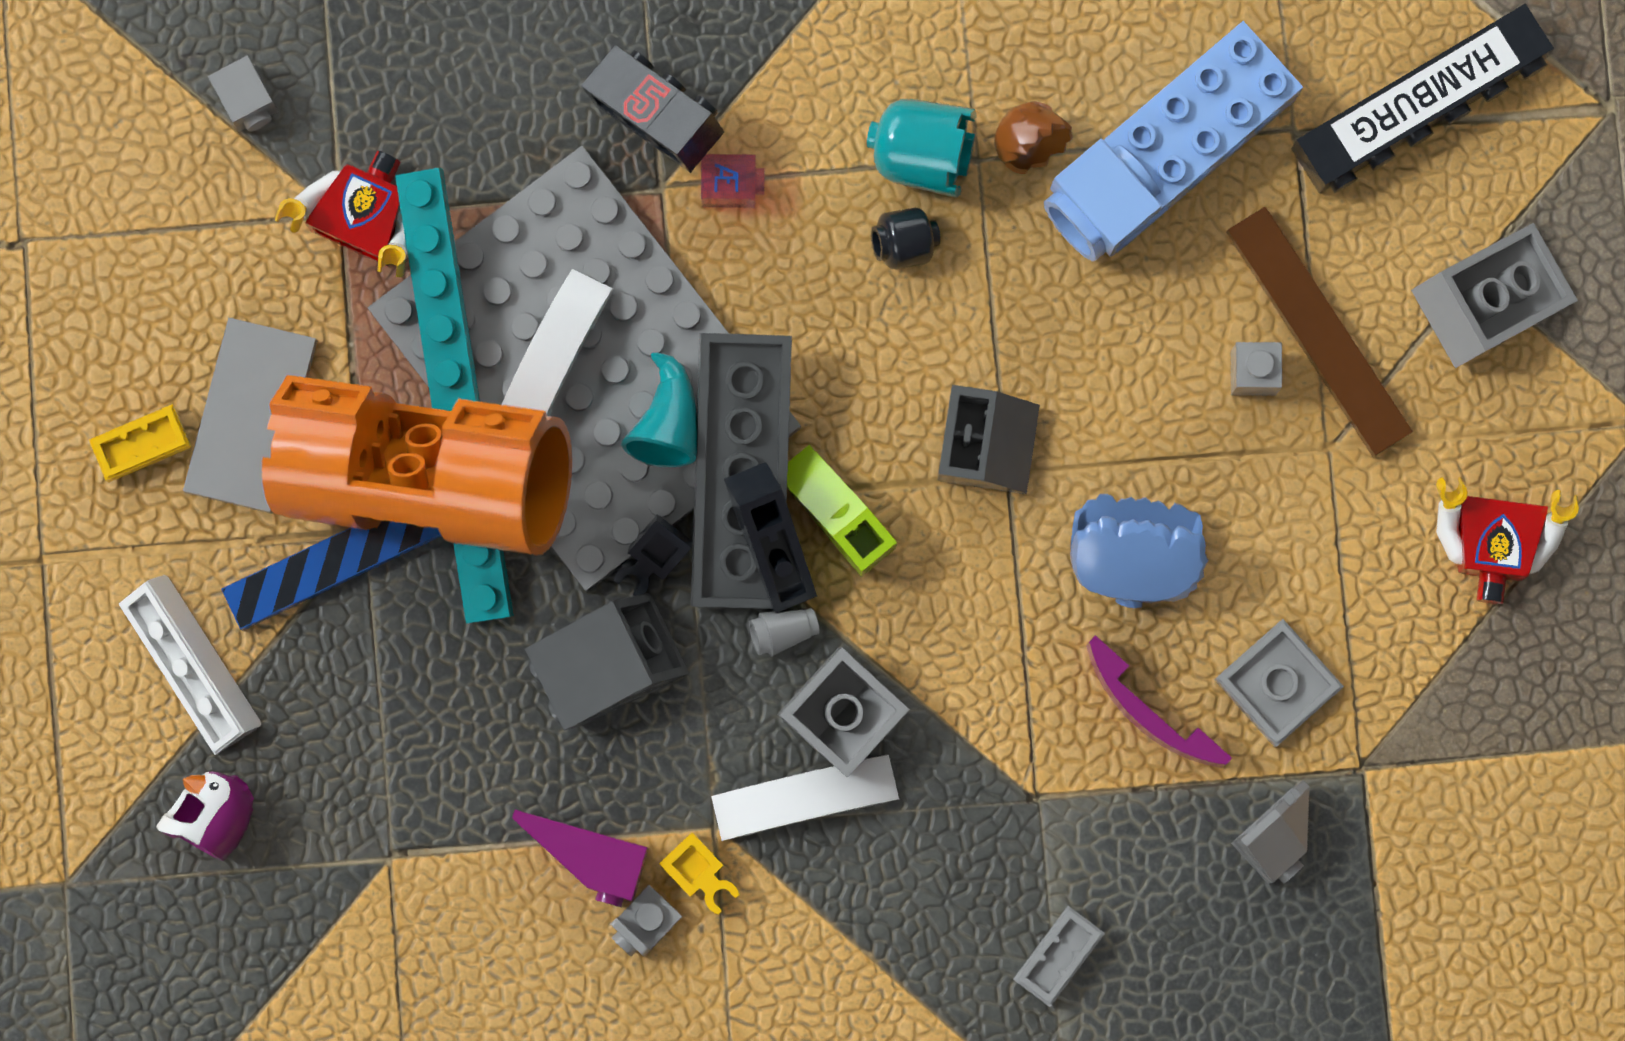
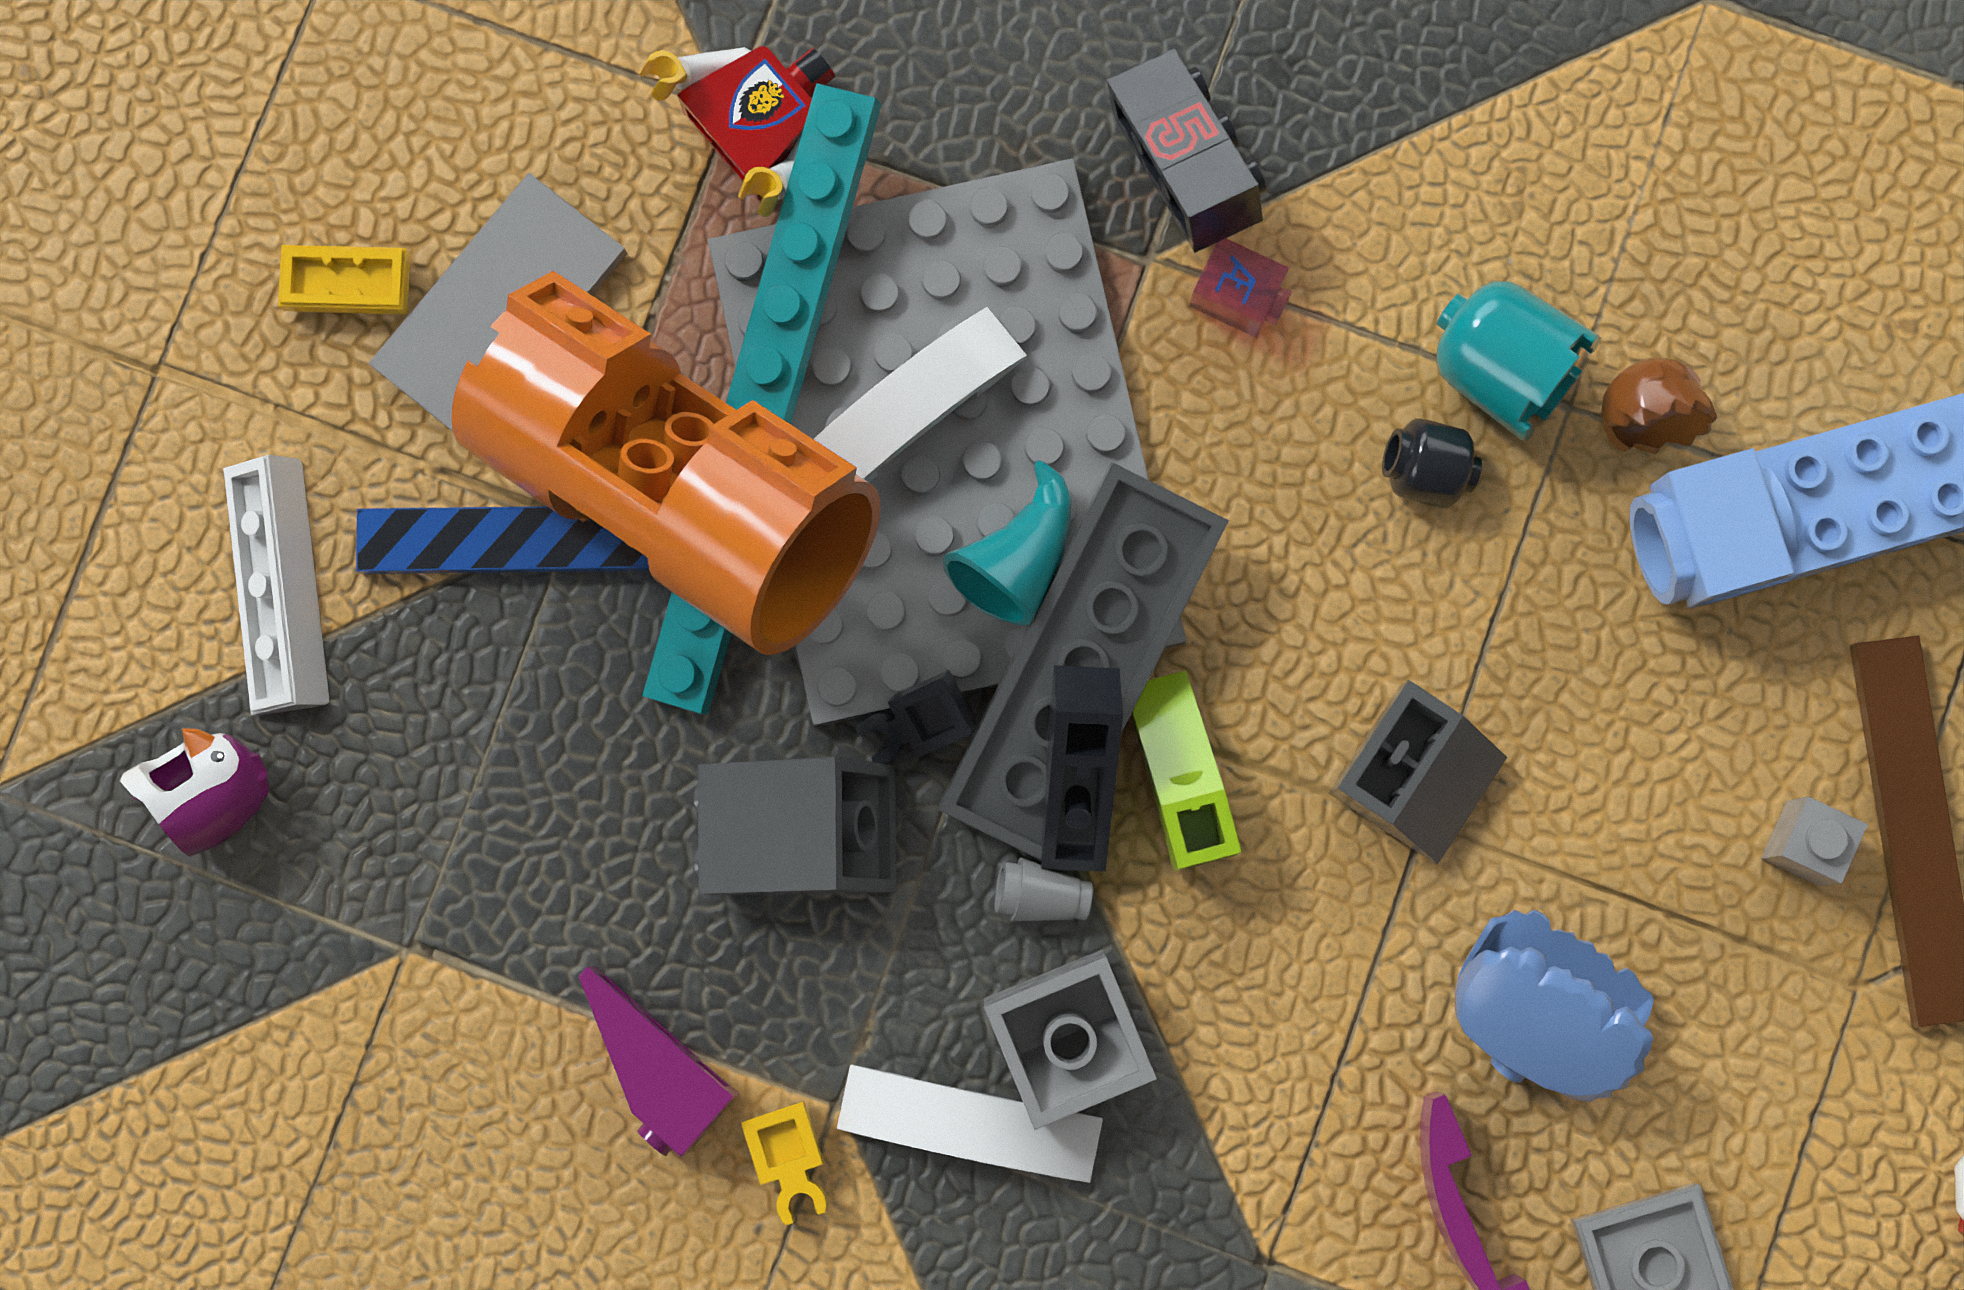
camera: 30 degrees right, 0 degrees up
(644, 922) = (687, 1189): light grey bracket -> none

